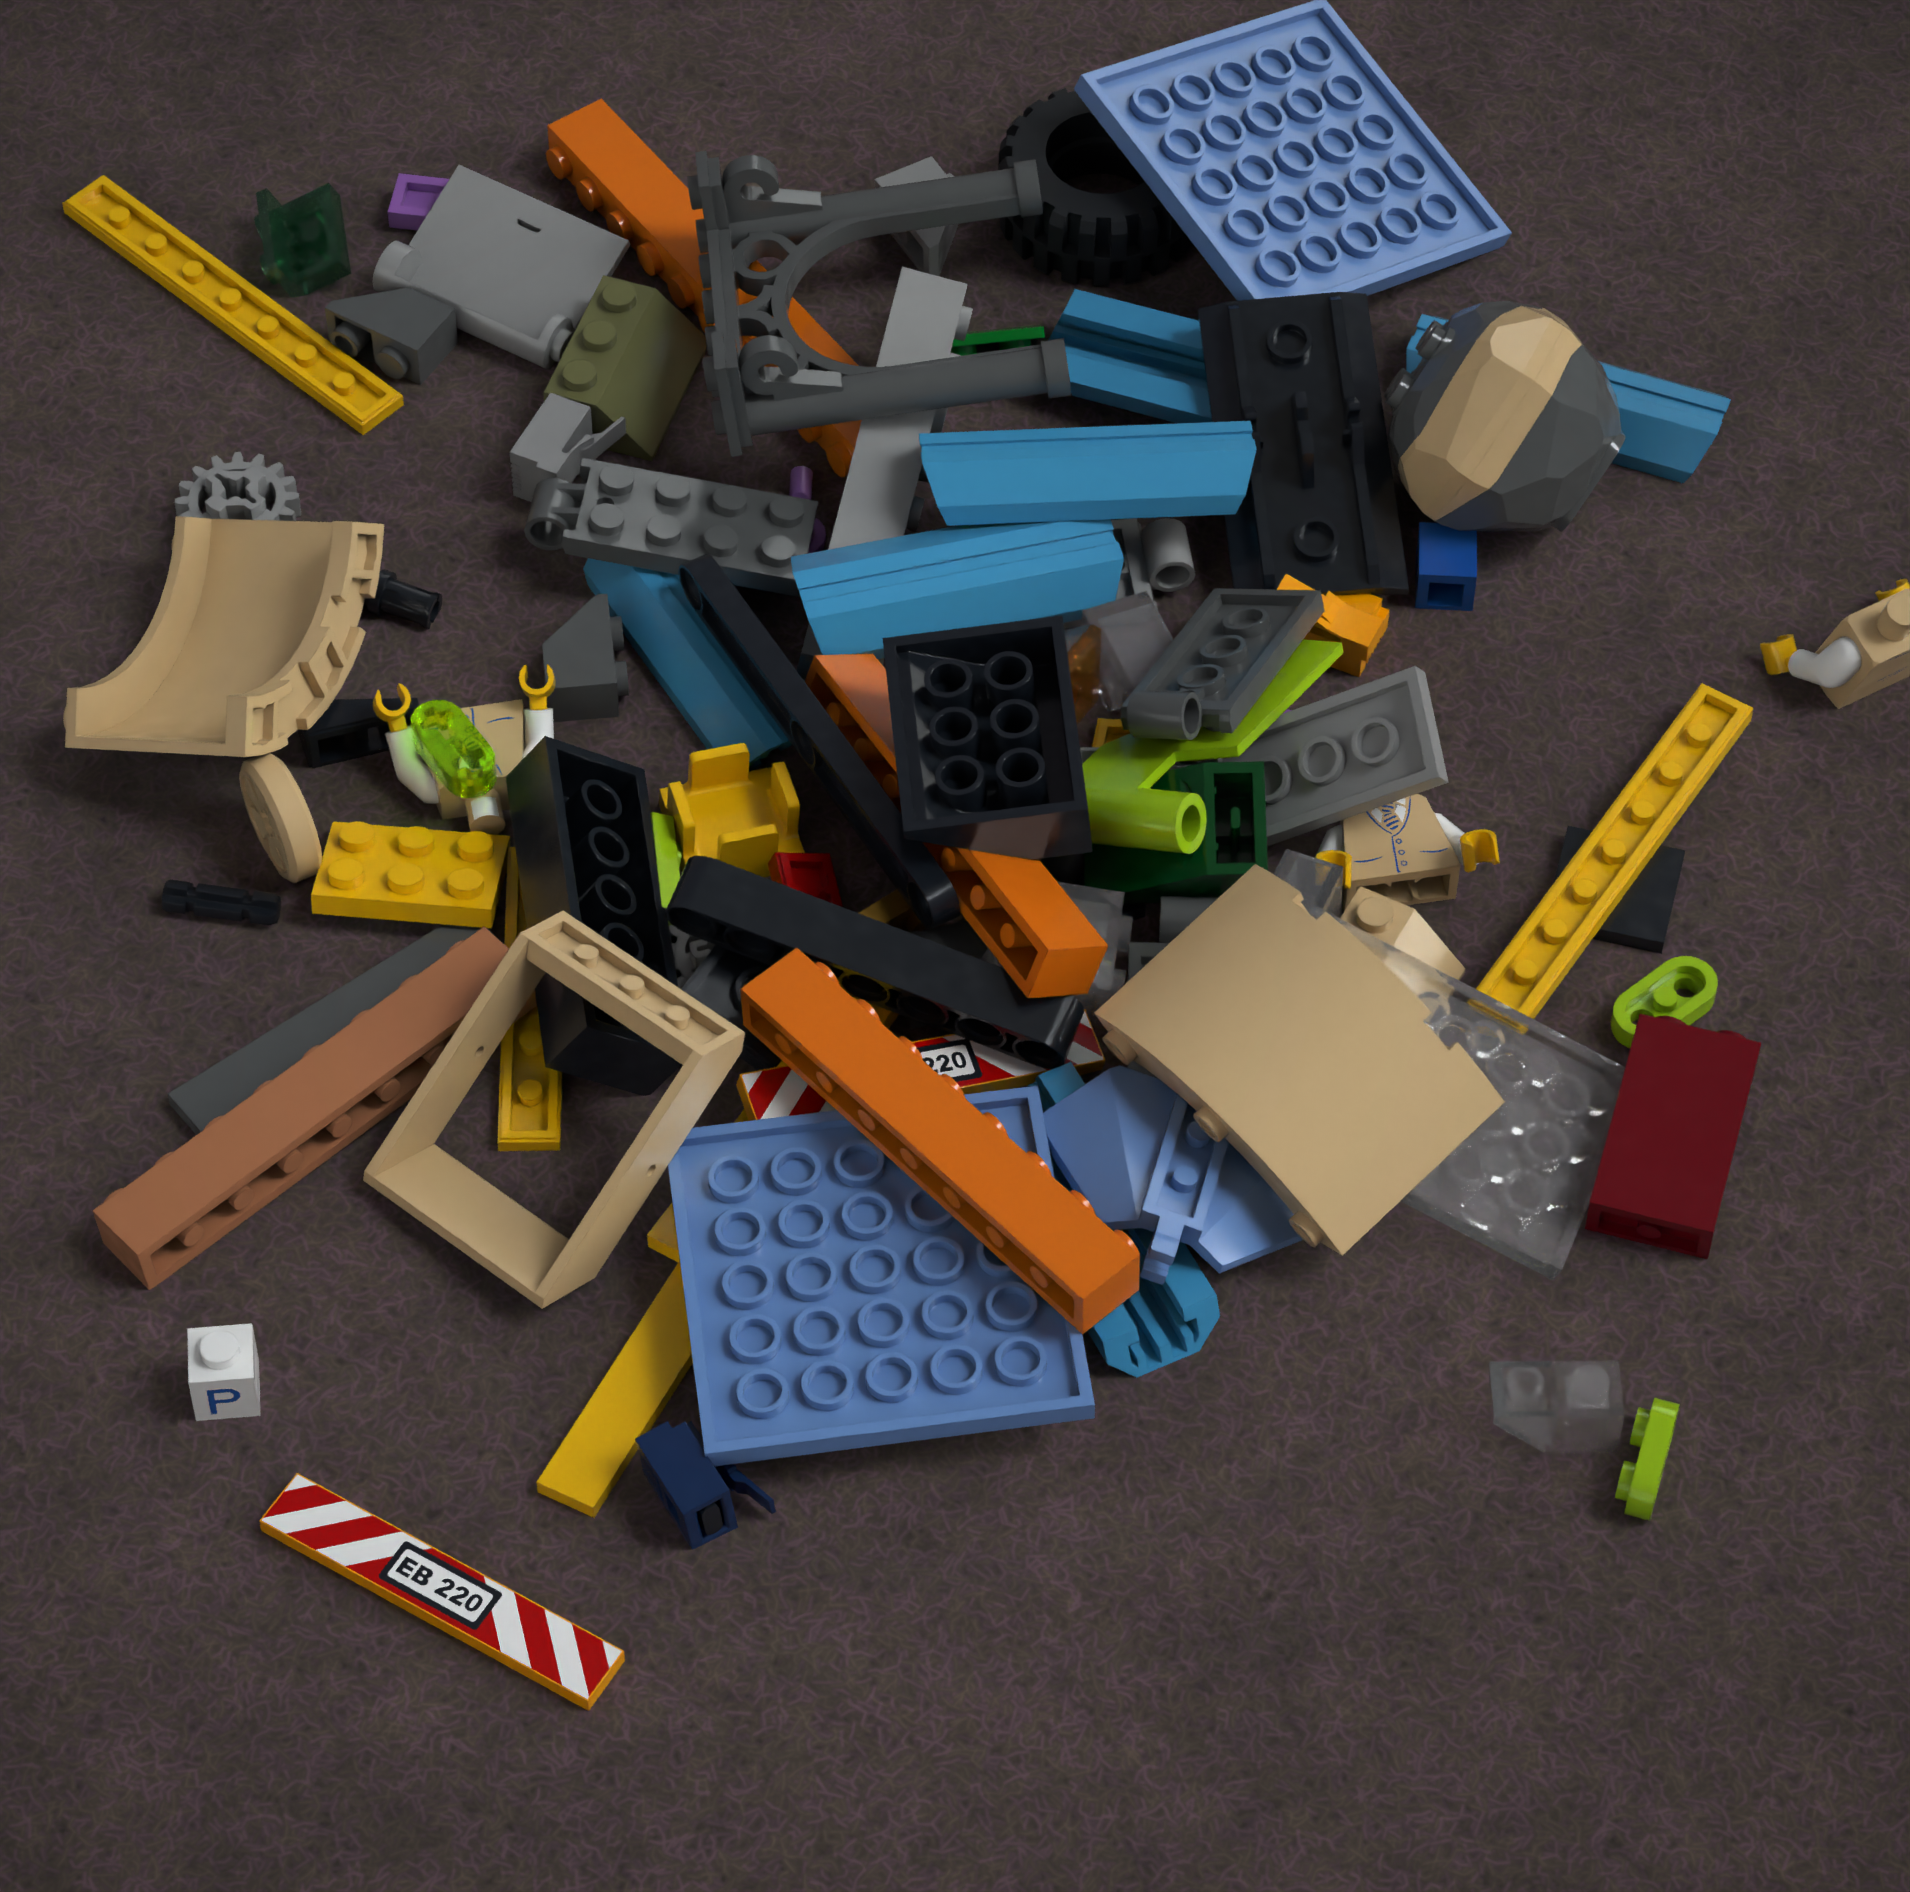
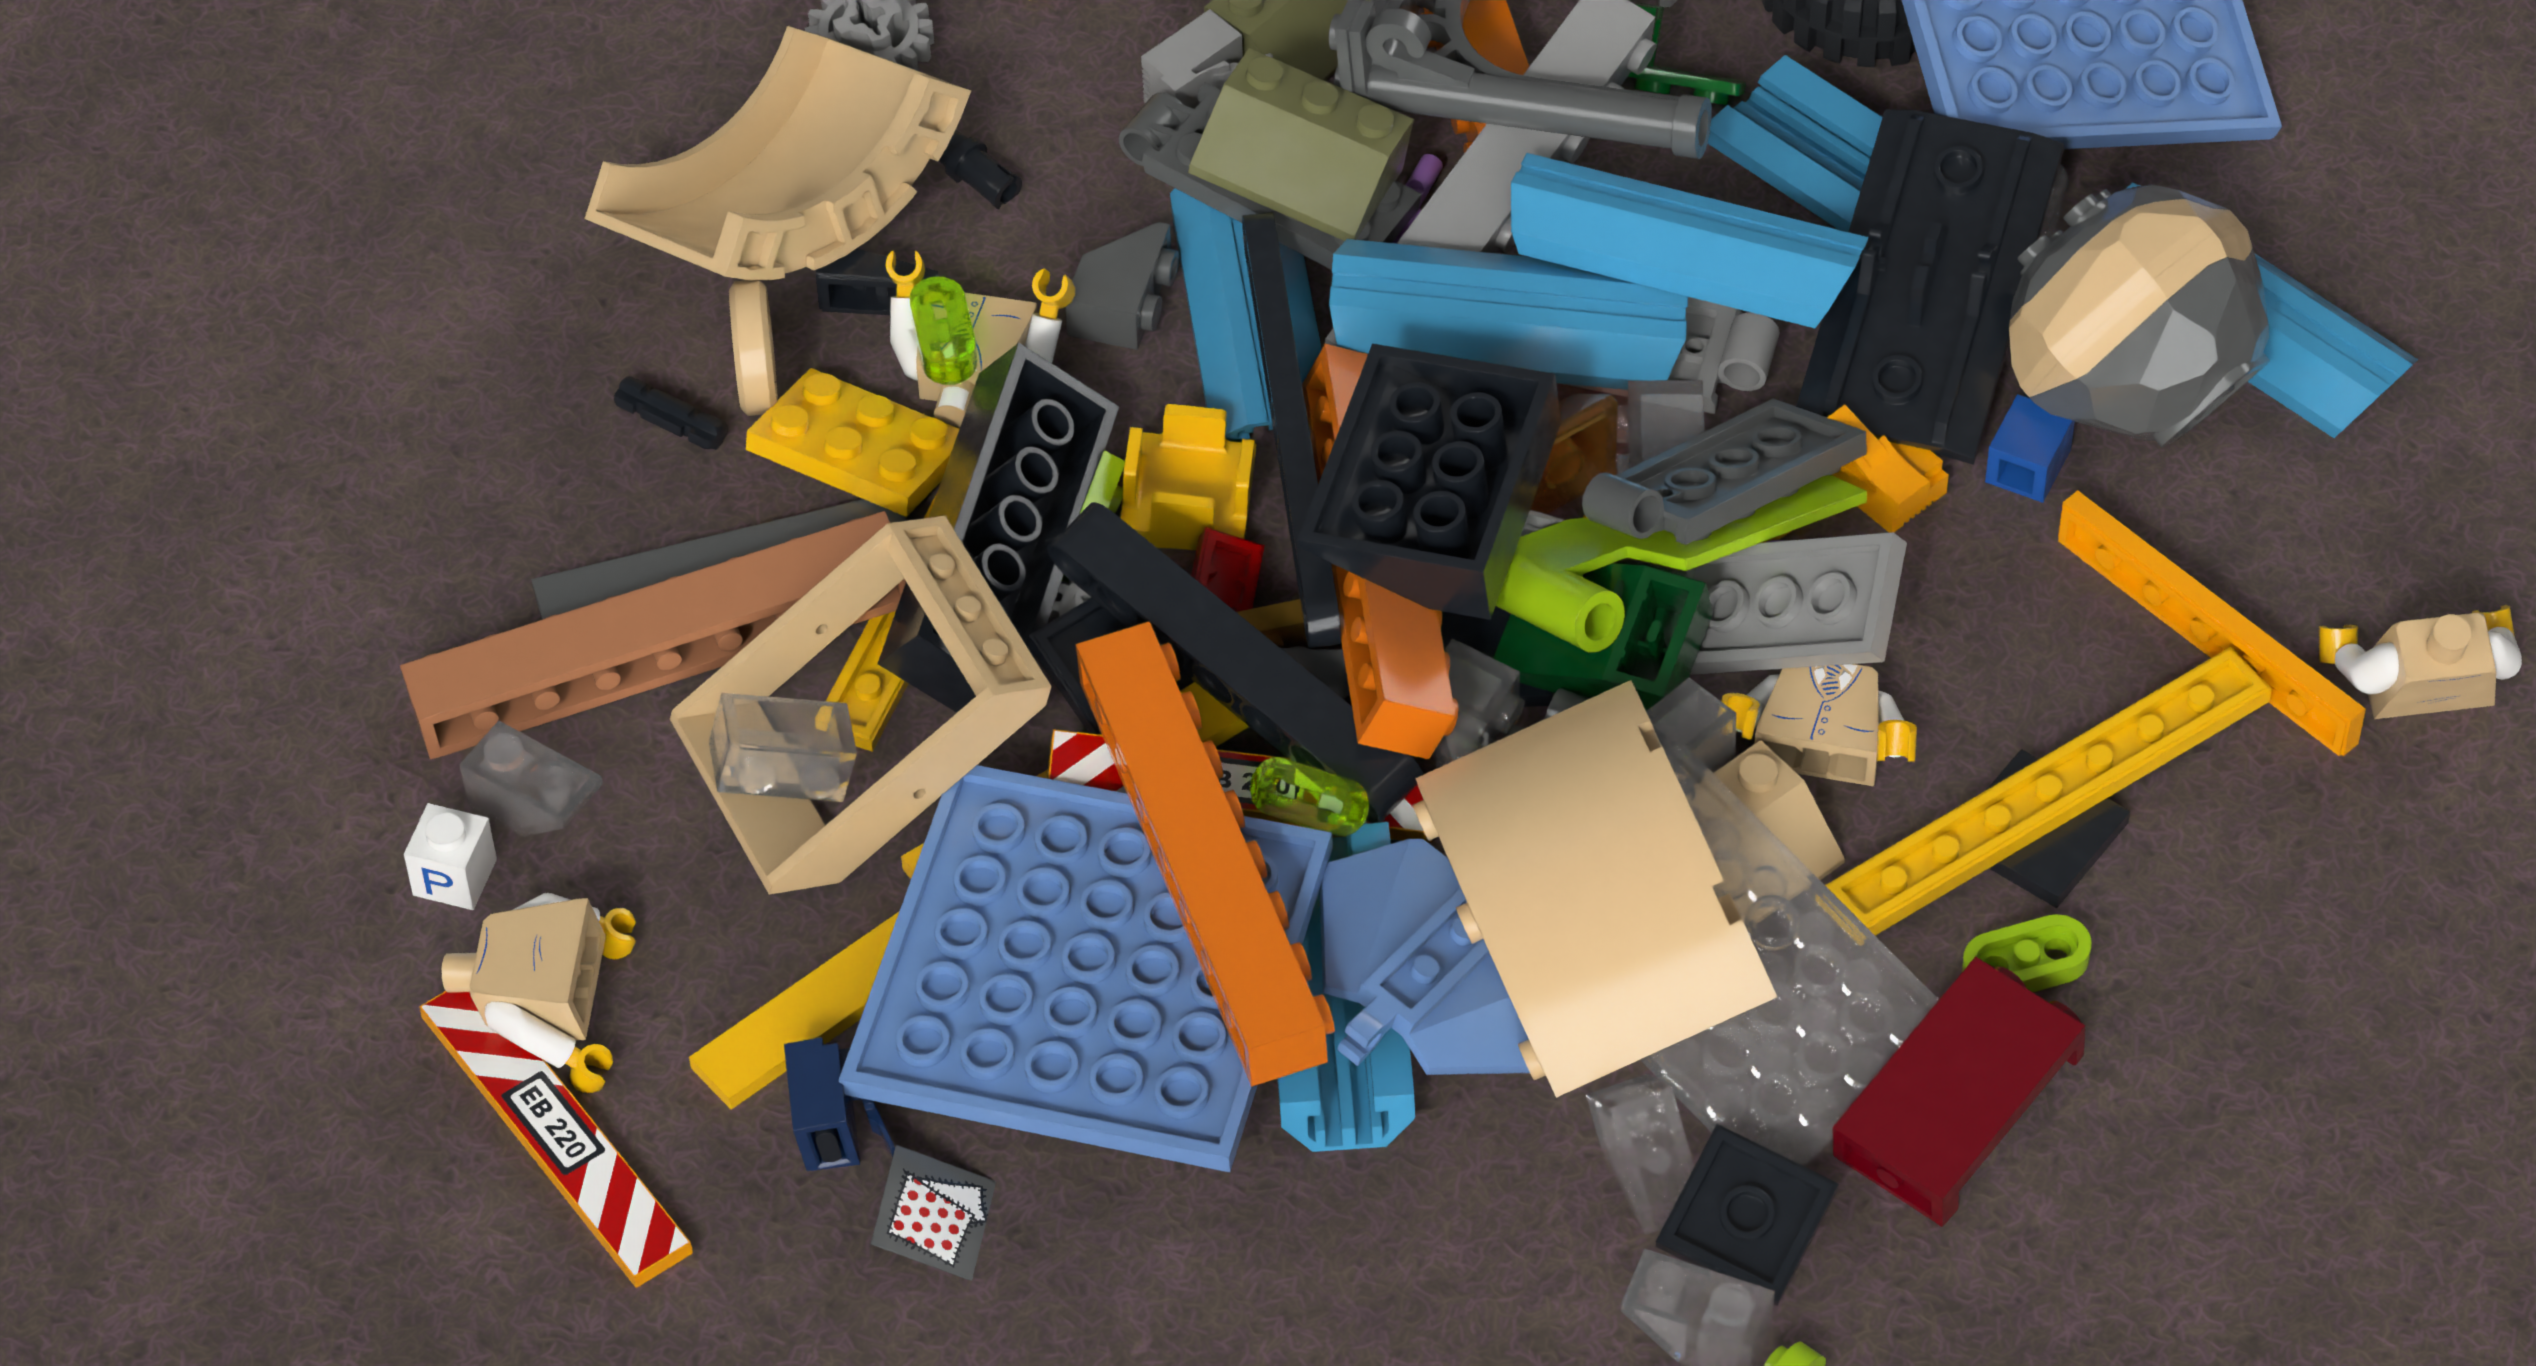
camera: 25 degrees right, 0 degrees up
(266, 1281) = (525, 782): none -> clear slope
(371, 1456) = (540, 978): none -> tan torso
(489, 1171) = (782, 747): none -> clear piece
(707, 487) = (1301, 146): none -> olive slope
(832, 1547) = (933, 1212): none -> sticker
(999, 1045) = (1306, 809): none -> clear neon green beam
(1434, 1275) = (1643, 1145): none -> clear slope
(1547, 1300) = (1747, 1212): none -> black tile
(1667, 667) = (2209, 621): none -> light orange tile

